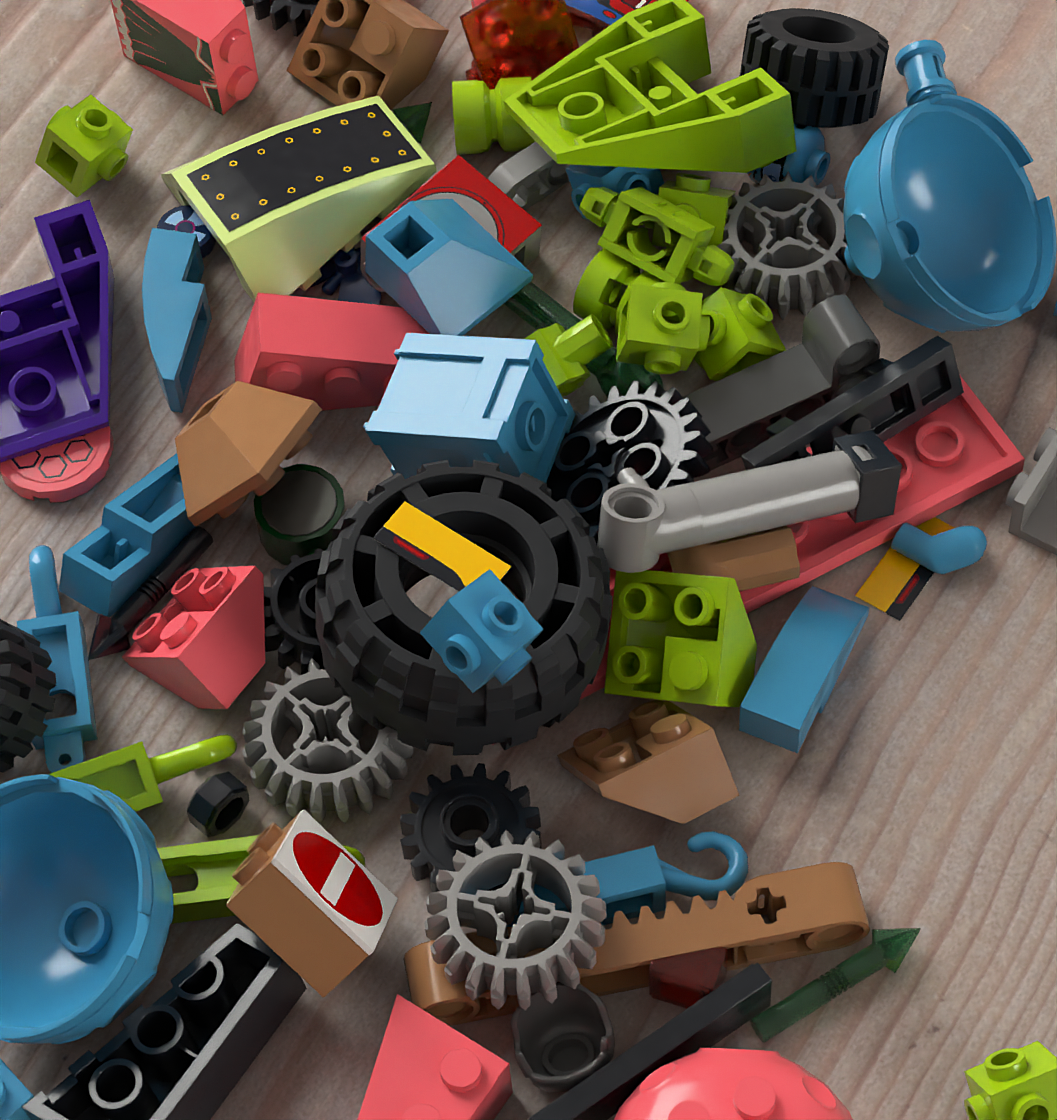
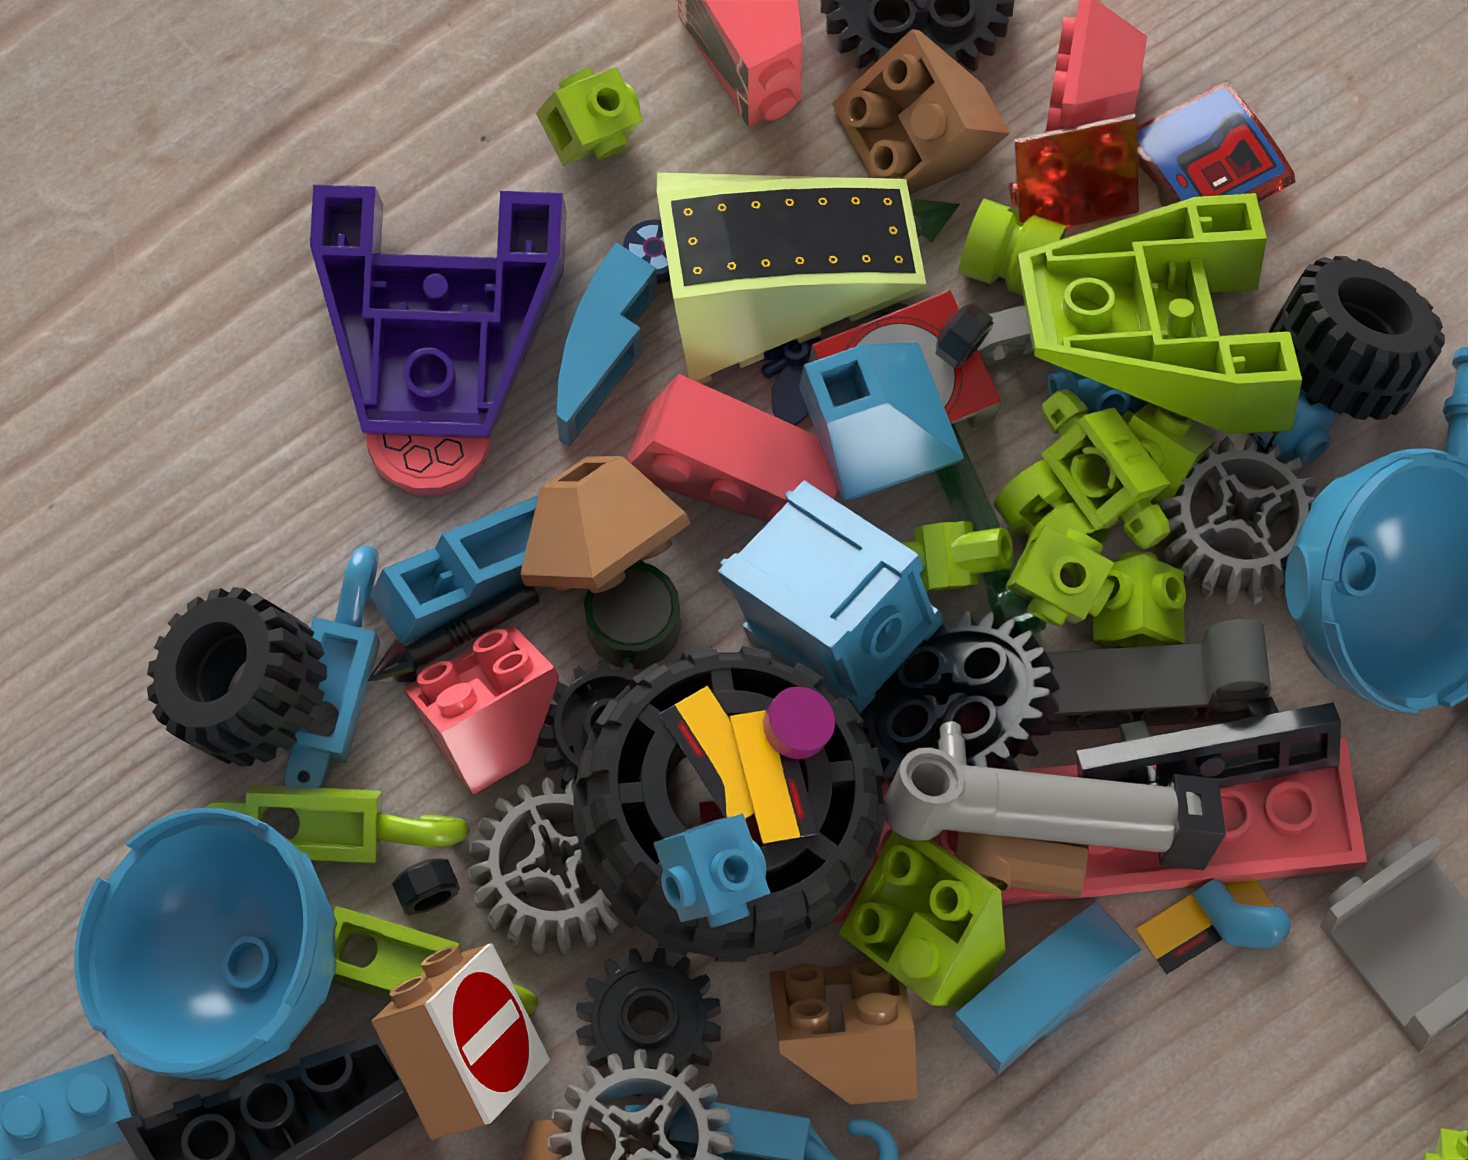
camera: 20 degrees right, 10 degrees up
(487, 178) = (963, 335): none -> black tile
(496, 547) = (773, 783): none -> yellow sticker
(499, 497) = (798, 722): none -> magenta tile

